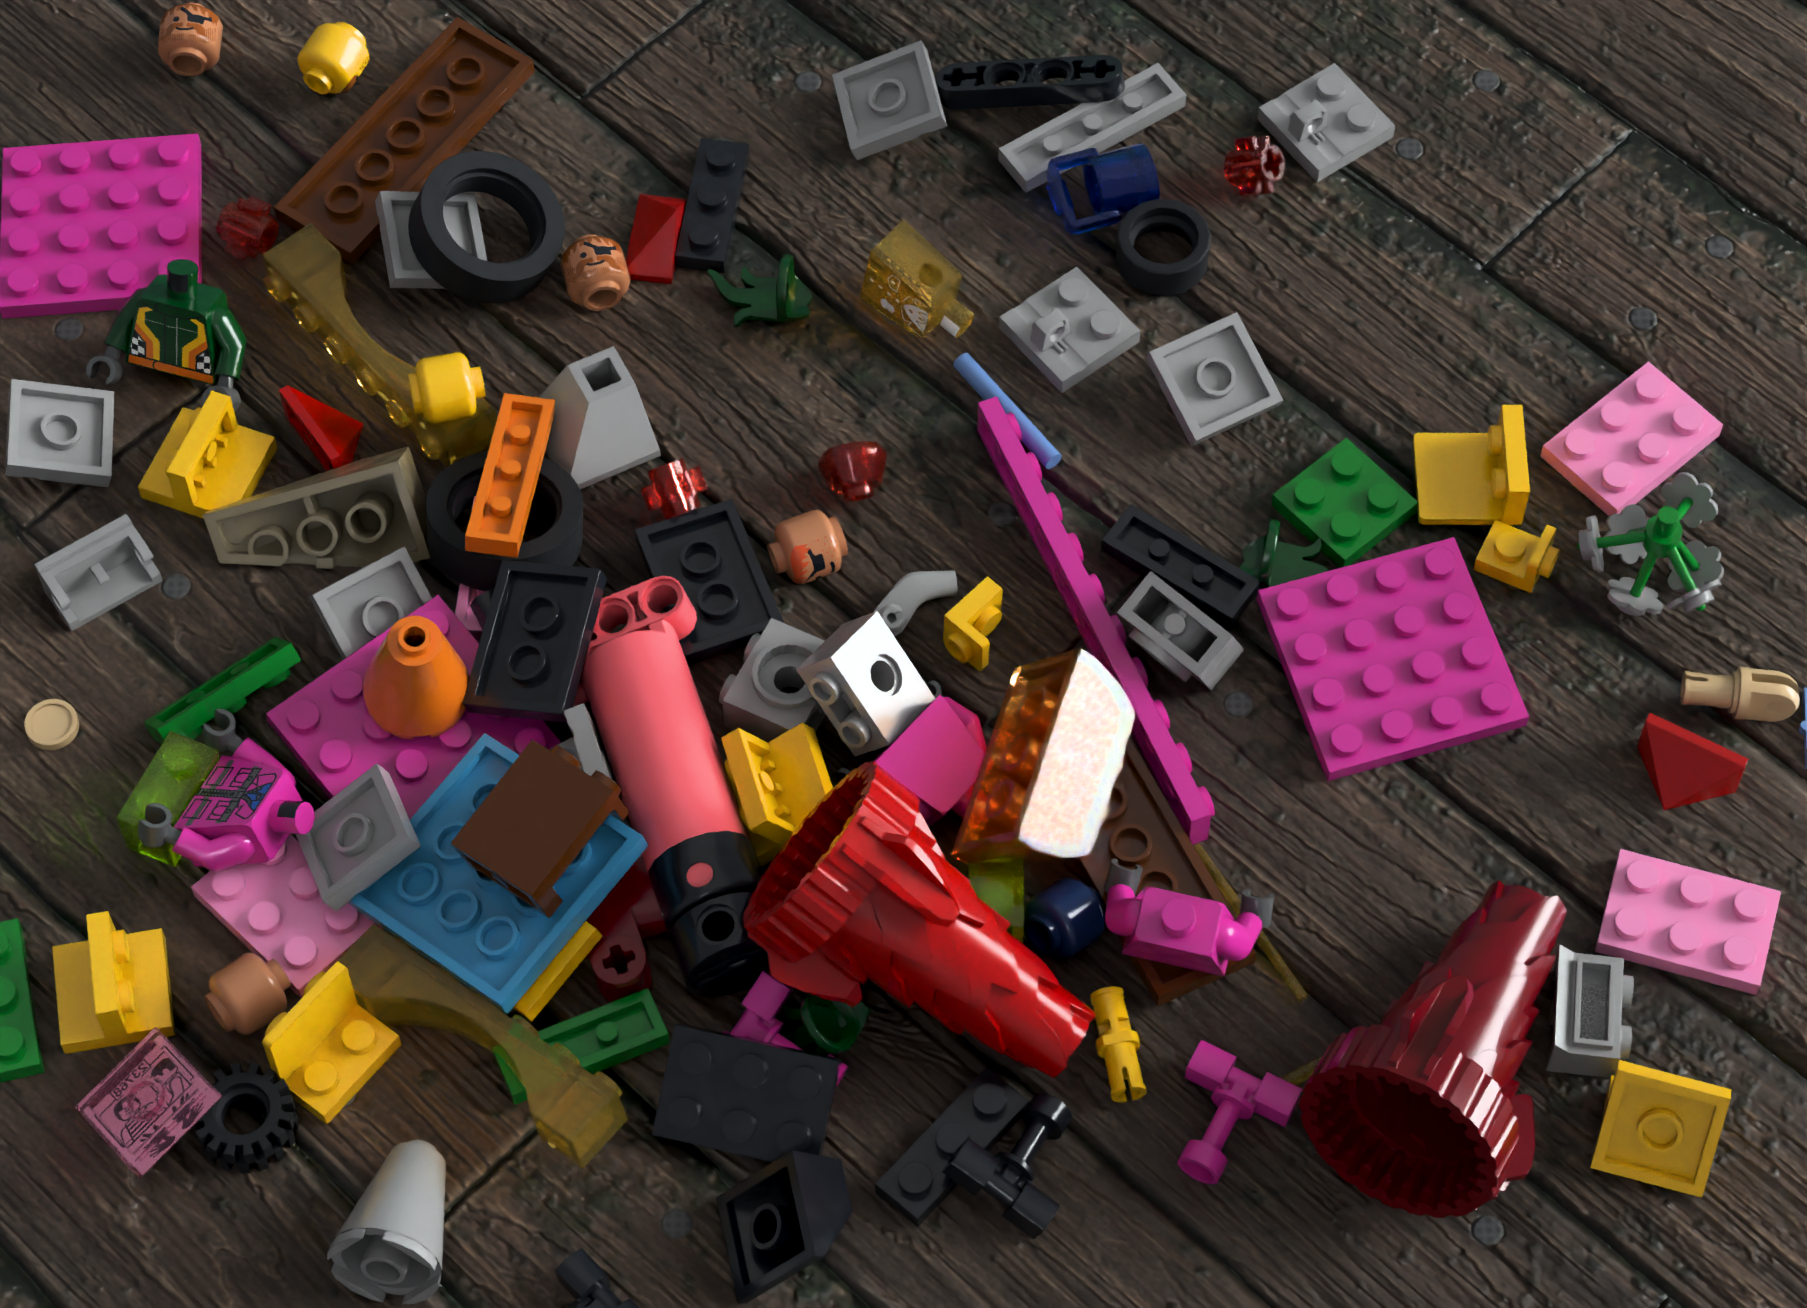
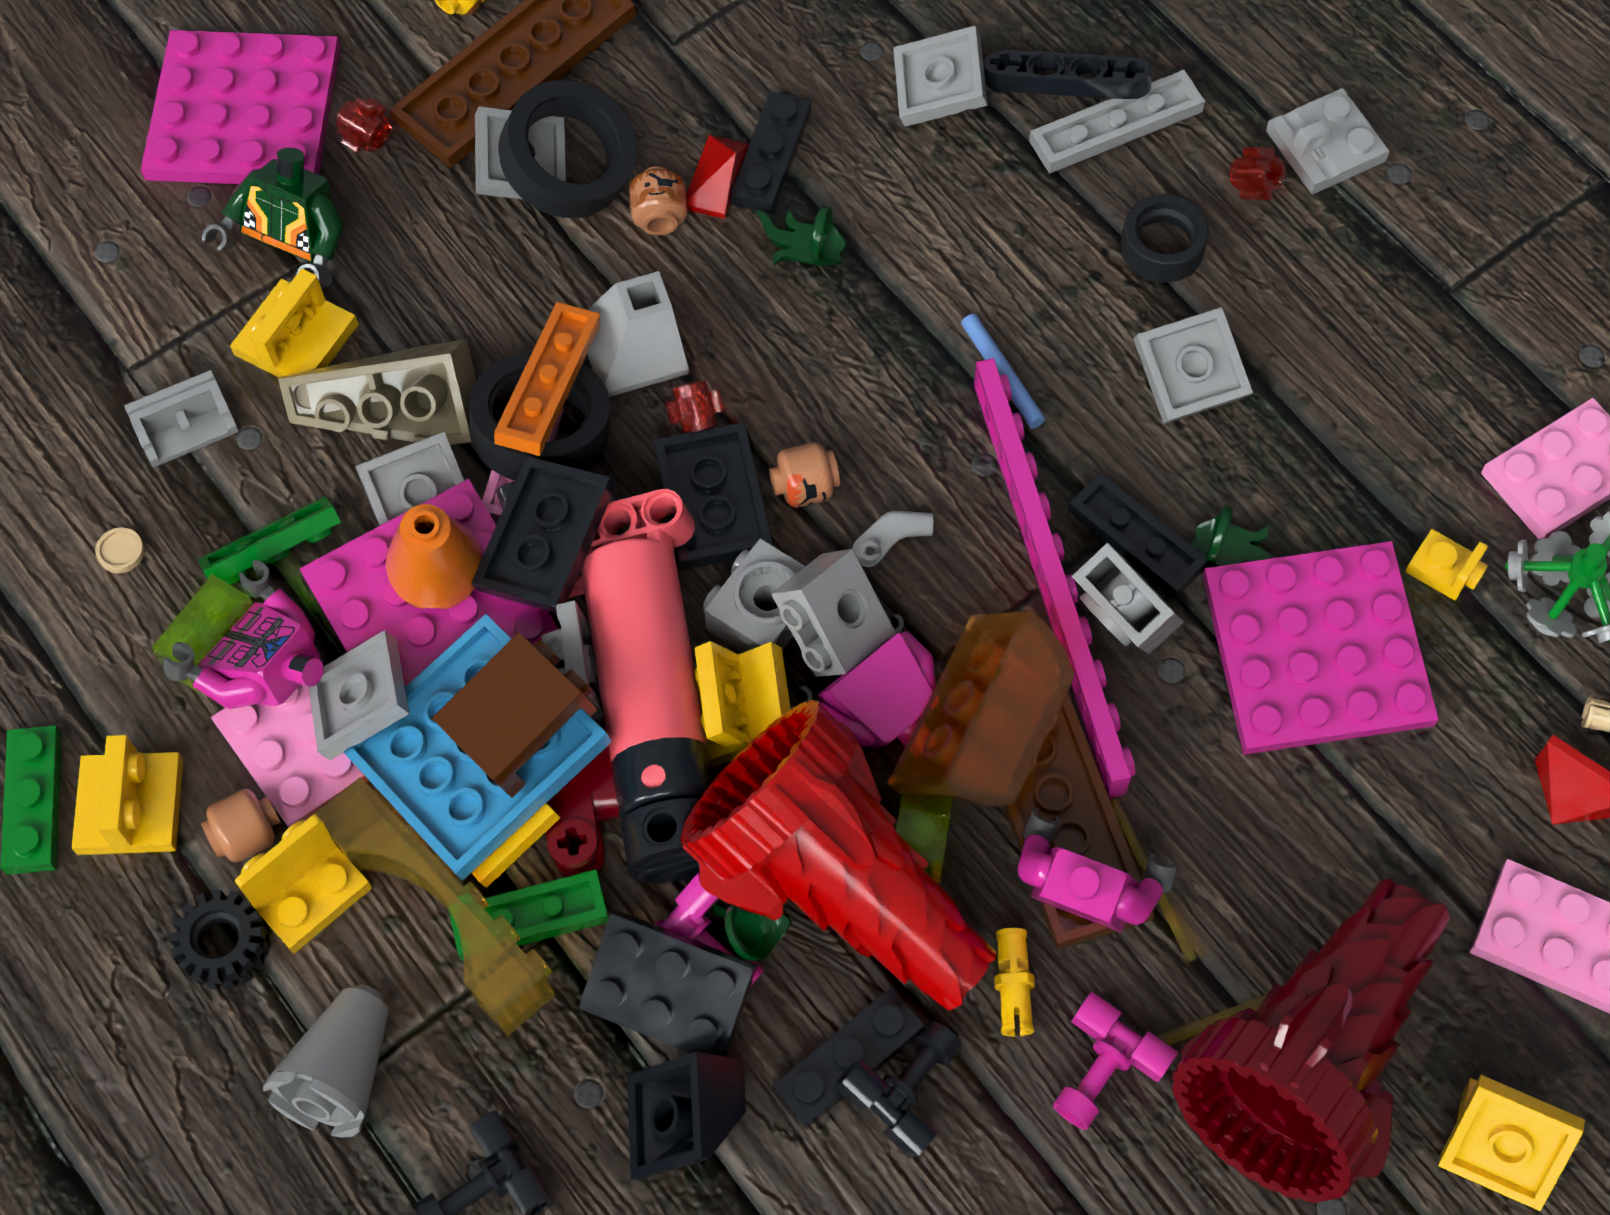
camera: 10 degrees right, 5 degrees up
(59, 433) = (169, 289): light grey hinge -> none
(148, 1102) = (135, 915): clear pink tile -> none
(313, 282) = (502, 307): clear yellow arch -> none
(324, 430) = (400, 313): red slope -> none
(445, 387) = (503, 291): yellow head -> none
(854, 469) = (857, 408): clear red cone -> none
(914, 284) = (936, 246): clear yellow torso -> none
(972, 621) = (942, 559): yellow bracket -> none
(1064, 918) = (982, 855): dark blue head -> none
(1069, 329) = (1069, 303): light grey hinge -> none
(1113, 183) = (1128, 173): clear blue piece -> none
(1344, 503) = (1295, 495): green plate -> none
(1473, 474) = (1418, 483): yellow bracket -> none
(1589, 1014) = (1457, 1016): light grey window -> none

